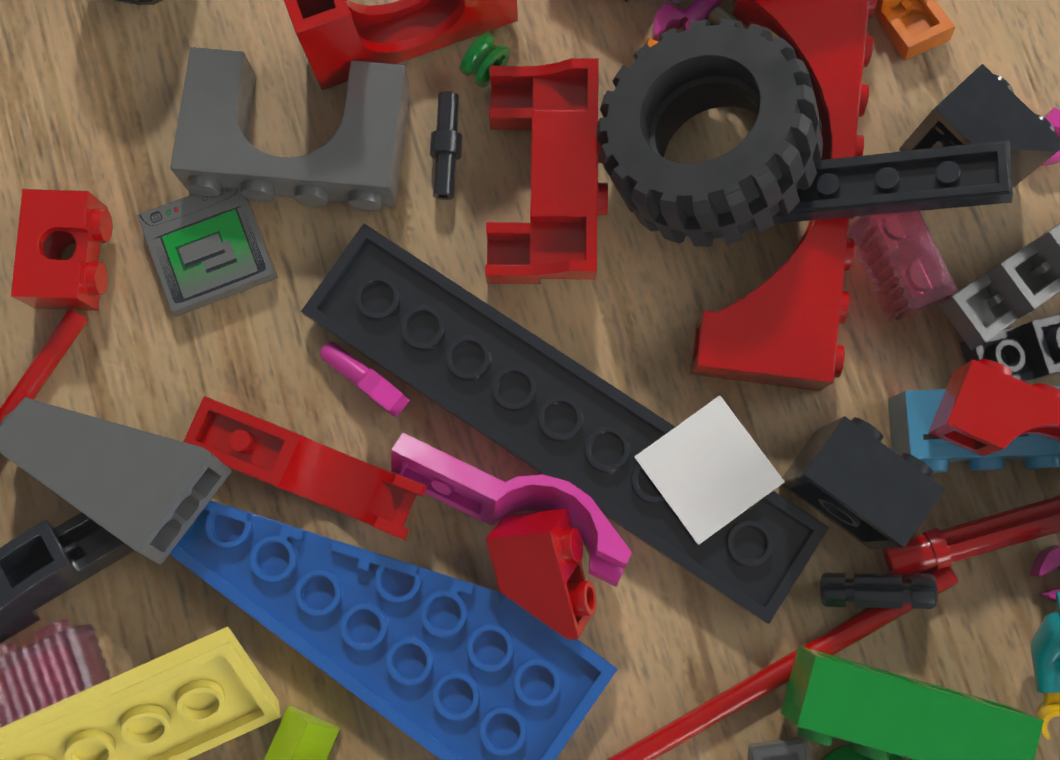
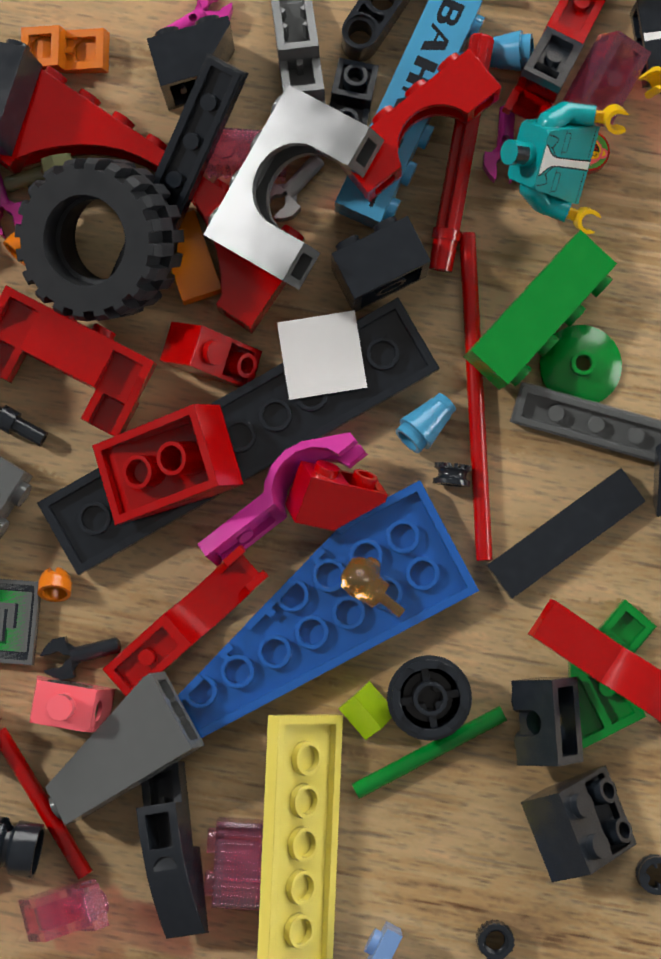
camera: 65 degrees left, 5 degrees up
(136, 373) = (70, 704): none -> coral torso
(209, 359) = (78, 654): none -> black bar
(279, 292) = (55, 585): none -> orange hinge
(364, 378) = (151, 550): dark pink bar -> none
(451, 666) = (363, 581): none -> clear orange piece
(484, 350) = (167, 463): none -> red slope
(640, 335) = (210, 354): none -> red slope
(642, 706) = (452, 476): none -> black bush
(691, 640) = (425, 423): none -> dark azure cone
(732, 269) = (197, 274): none -> orange slope
(878, 590) = (453, 287): black axle -> none
(886, 333) = (293, 187): none -> light grey bar
(978, 295) = (294, 130): none -> arch

